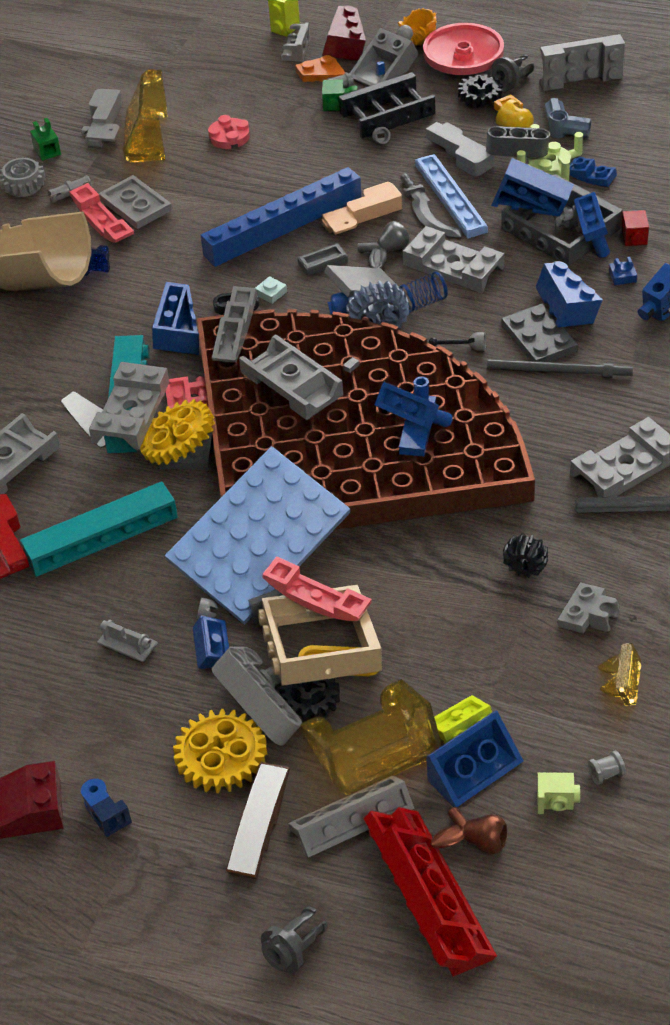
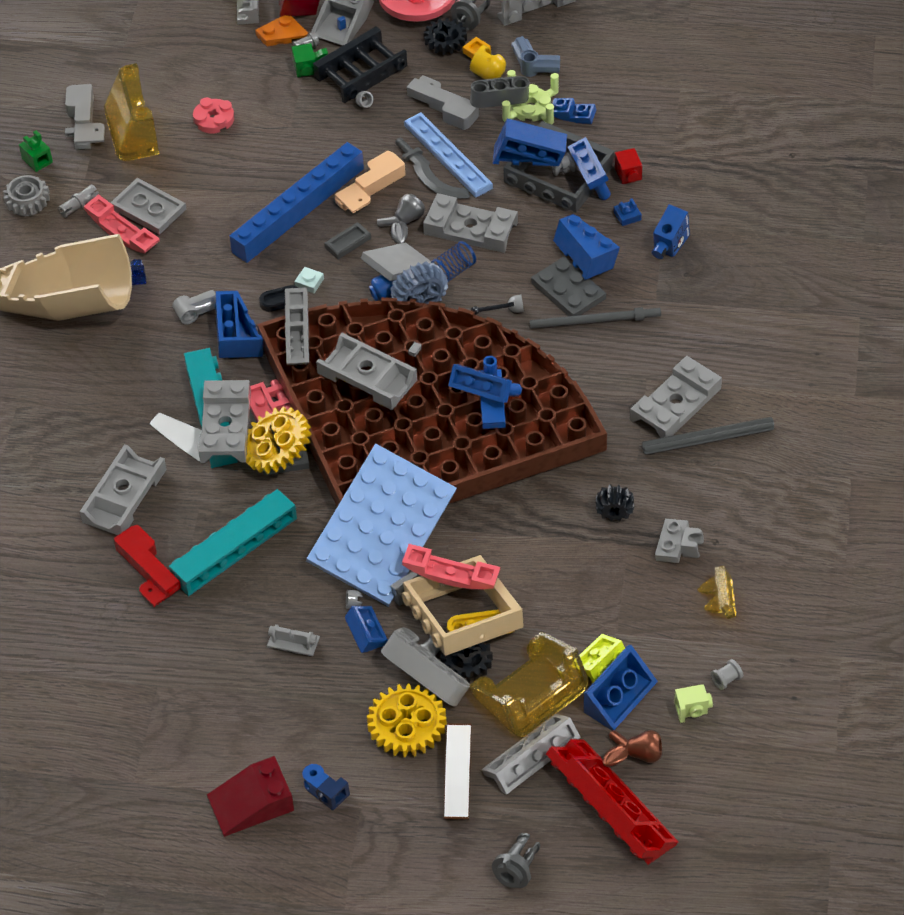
camera: 15 degrees left, 5 degrees up
(140, 297) = (190, 308): none -> light grey piece

